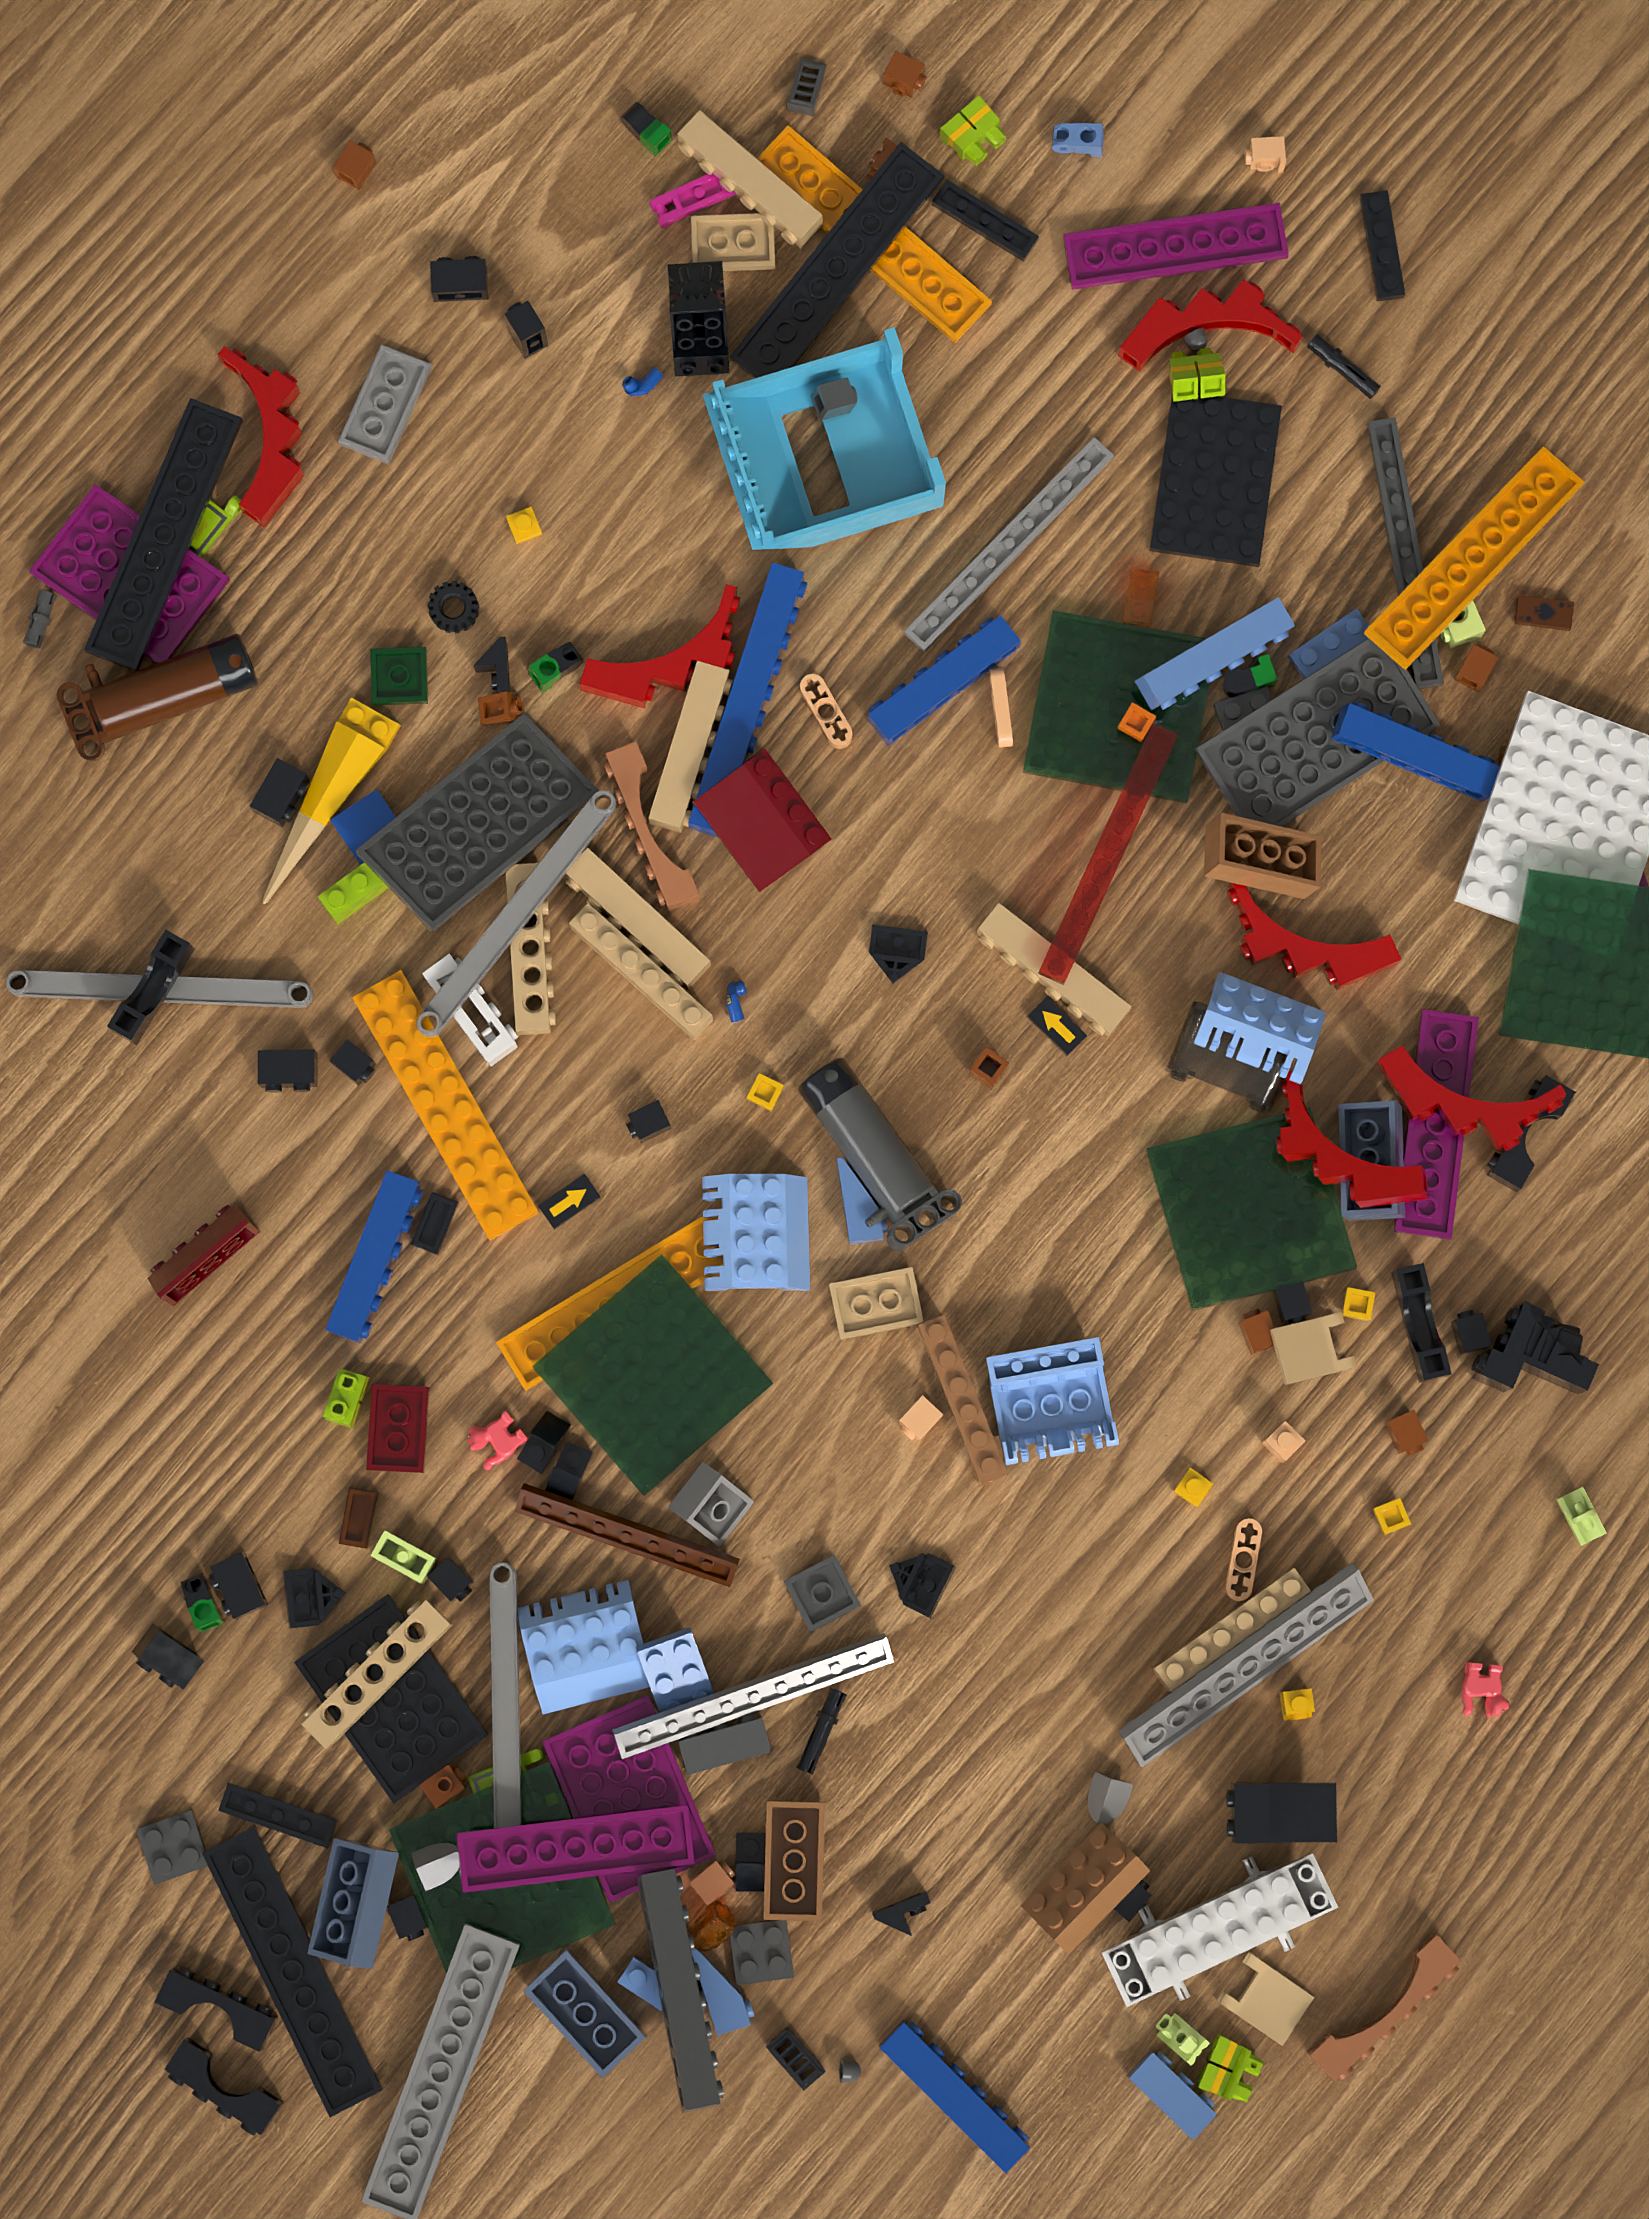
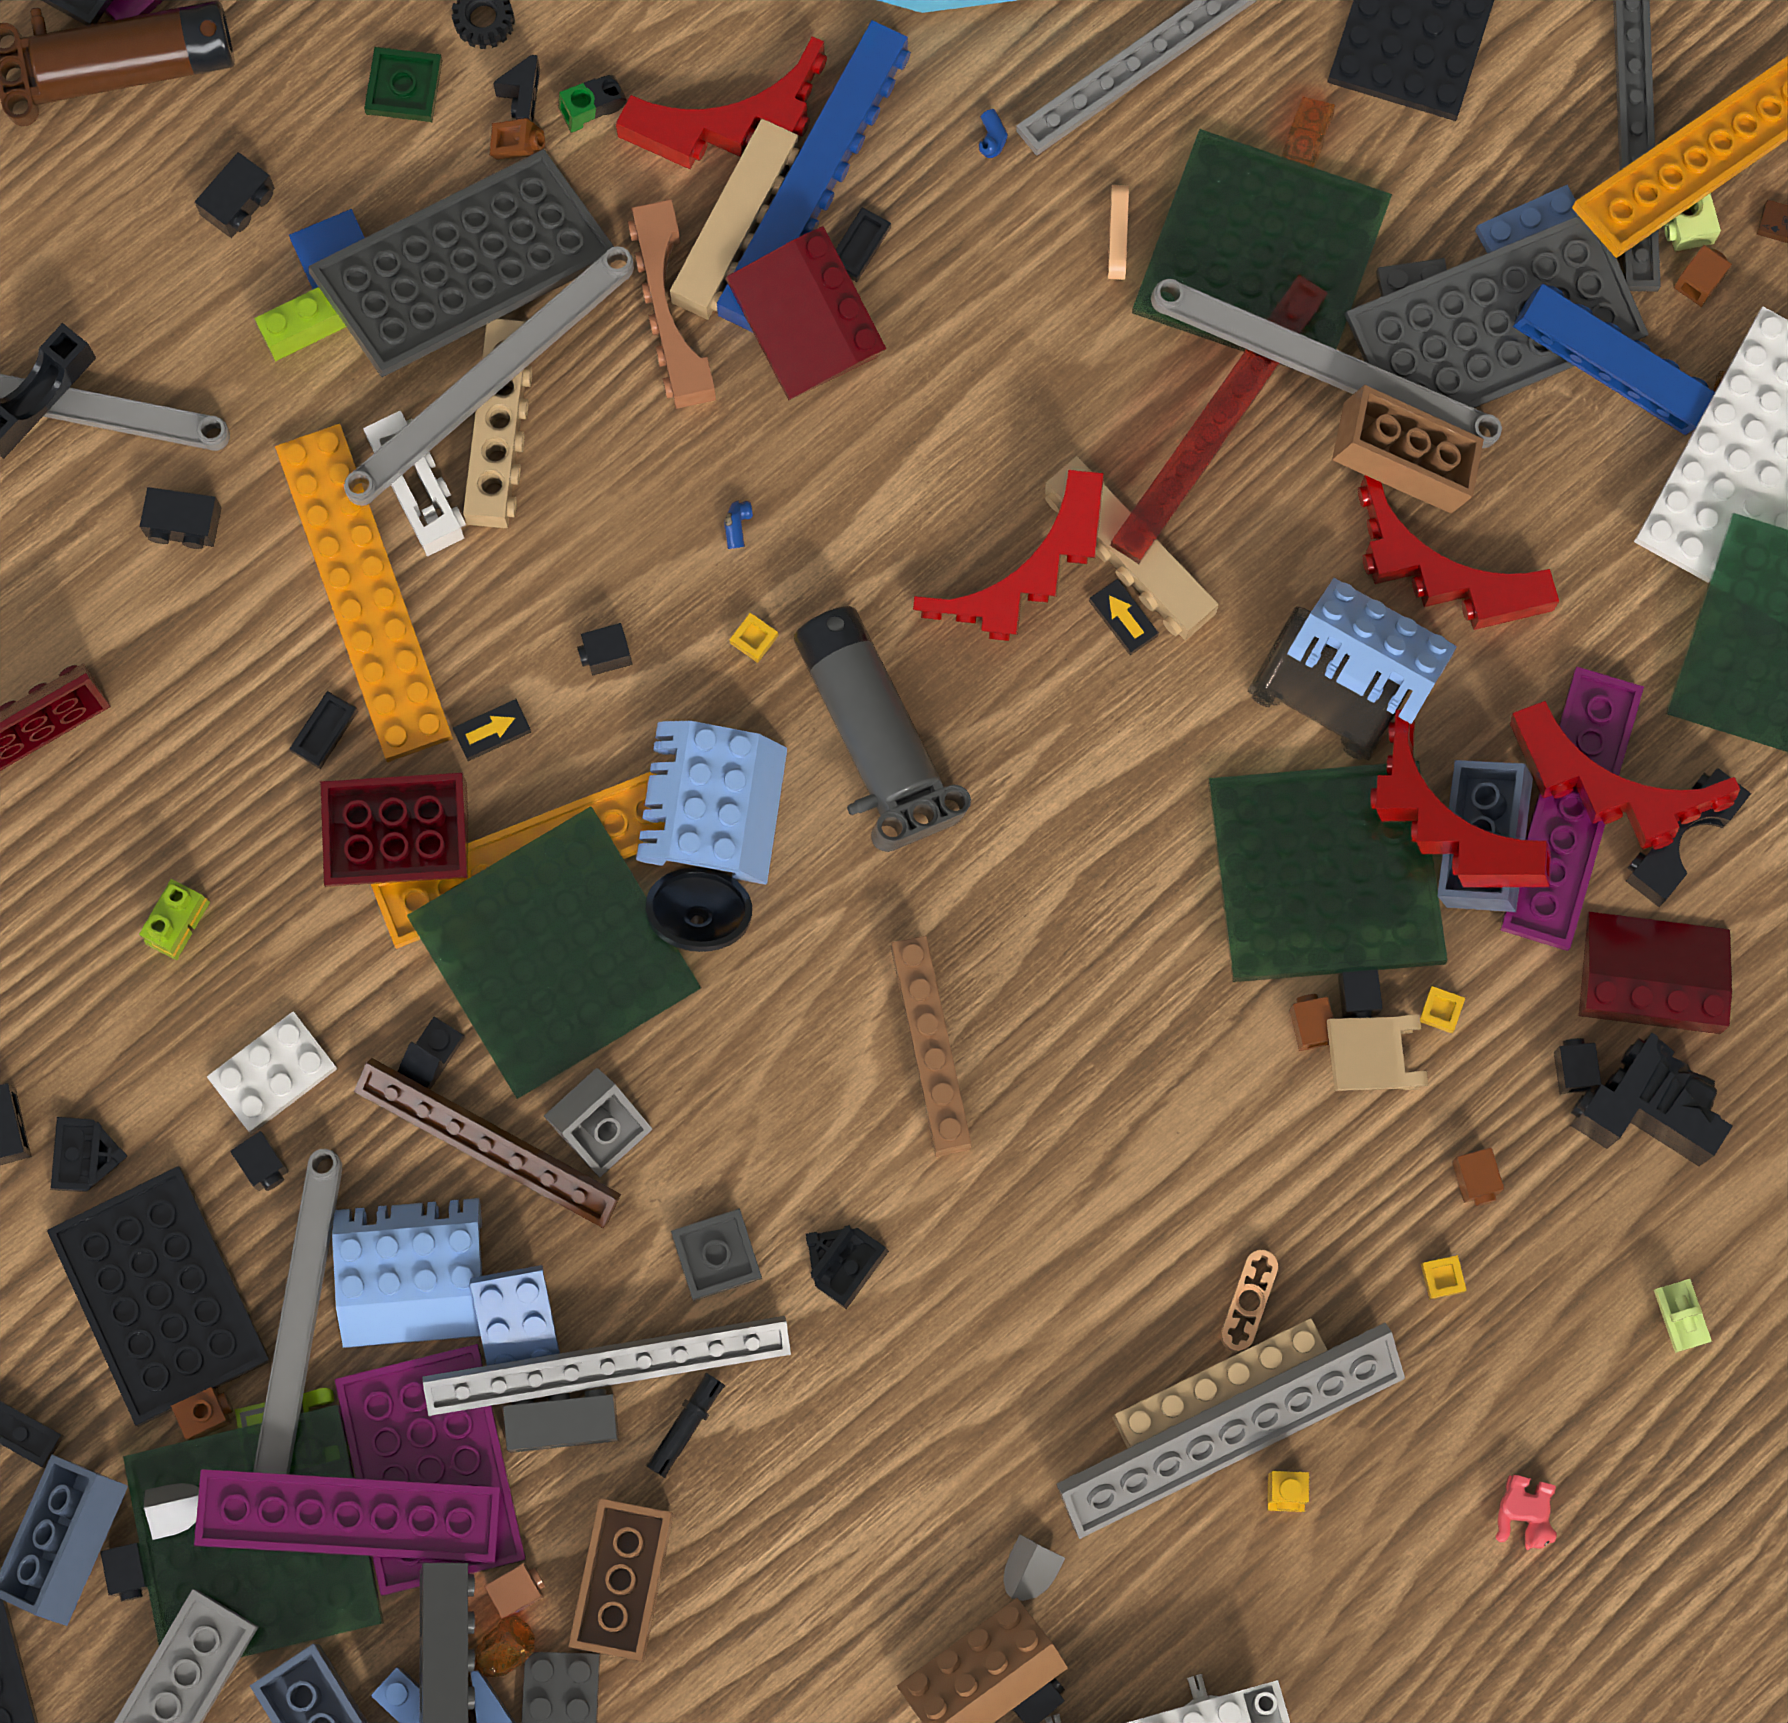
camera: 10 degrees right, 5 degrees down
(316, 1717) = (59, 1300): tan brick -> none
(352, 751) = (328, 164): yellow plate -> none
(353, 1063) = (261, 522): black brick -> none
(358, 1518) = (161, 1068): reddish brown tile -> none
(374, 1256) = (241, 756): blue brick -> none
(397, 1428) = (230, 967): dark red plate -> none
(404, 1557) = (206, 1122): yellowish green brick -> none
(446, 1506) = (272, 1072): none -> white plate
(498, 1435) = (351, 993): coral animal -> none
(509, 1299) = (394, 829): none -> dark red slope
(543, 1441) = (407, 1013): black slope -> none
(637, 918) = (636, 409): tan brick -> none
(641, 971) = (629, 470): tan brick -> none
(750, 1862) = (565, 1574): black slope -> none
(761, 1311) = (698, 909): none -> black dish
(794, 749) = (862, 242): none -> black tile
(822, 690) = (908, 190): light nougat beam -> none
(858, 1208) = (841, 790): medium blue slope -> none
(876, 1303) = (844, 911): tan plate -> none
(888, 641) = (996, 135): none -> blue arm
(894, 1914) = (736, 1671): black slope -> none
(897, 949) = (945, 495): black slope -> none
(919, 1419) = (874, 1060): light nougat brick -> none
(943, 680) = (1054, 189): blue brick -> none
(988, 1068) = (1031, 650): dark orange brick -> none
(1005, 972) = (1071, 535): none -> red arch
(1051, 1399) = (1041, 1060): light blue slope -> none
(1136, 722) = (1279, 271): orange plate -> none
(1180, 792) = (1312, 356): none -> light grey piece
(1193, 1487) = (1200, 1201): yellow plate -> none
(1214, 654) = (1387, 206): medium blue brick -> none
(1244, 681) = (1416, 246): leg -> none
(1282, 1812) = (1246, 1621): black brick -> none
(1283, 1441) = (1322, 1162): light nougat brick -> none
(1416, 1310) = (1513, 1031): black arch -> none
(1522, 1246) = (1656, 973): none -> dark red slope

